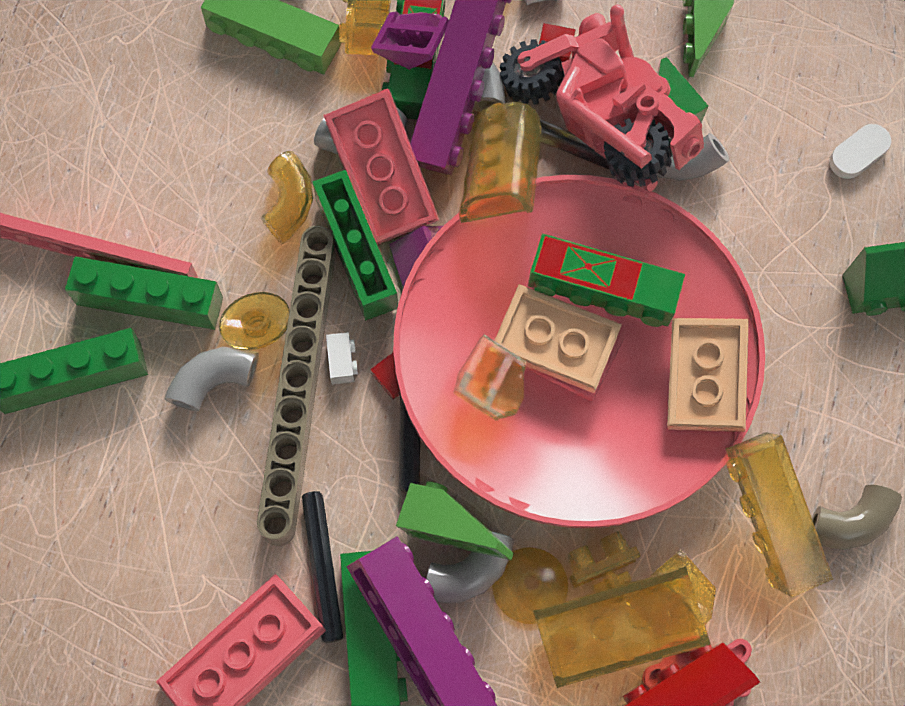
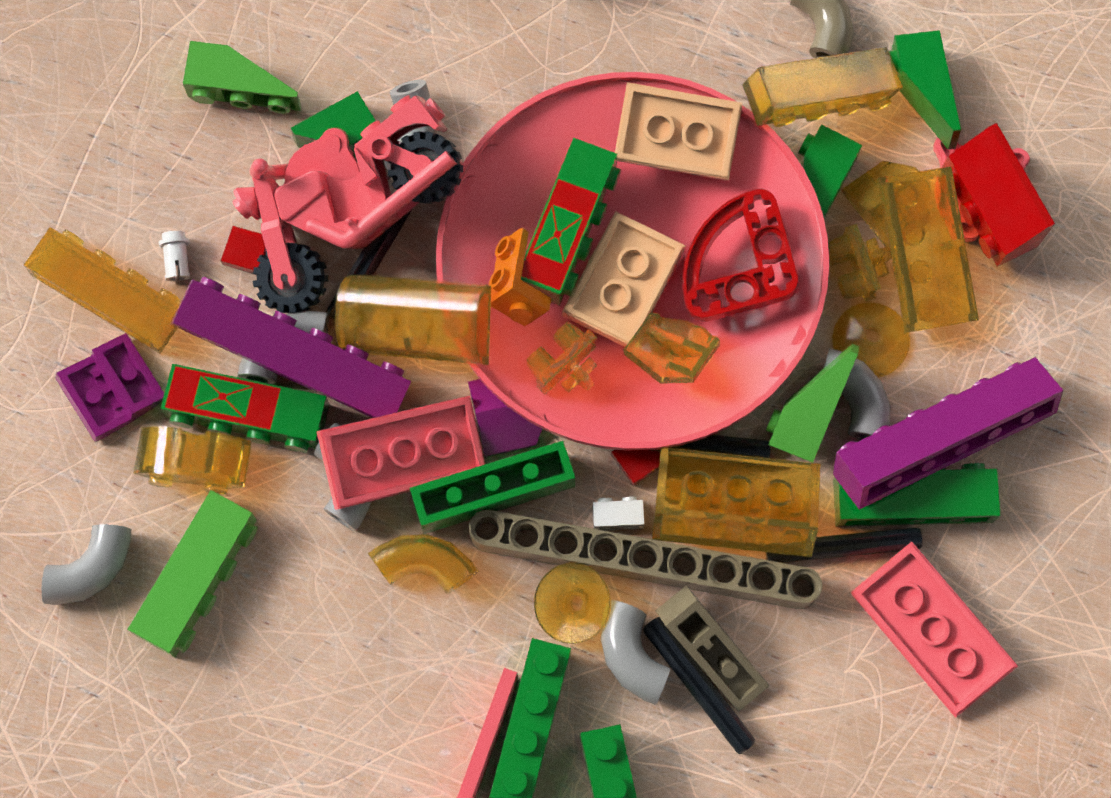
camera: 85 degrees left, 5 degrees up
(184, 439) = (699, 686): none -> black axle
(218, 443) = (712, 648): none -> dark tan slope
(351, 454) = (736, 502): none -> clear yellow brick
(410, 38) = (244, 401): magenta slope -> none
(468, 293) = (576, 348): none -> clear yellow hips
(521, 240) = (508, 292): none -> orange bracket
(569, 458) = (758, 277): none -> red beam
(694, 527) = (828, 162): none -> green slope
(809, 620) = (927, 82): none -> green slope

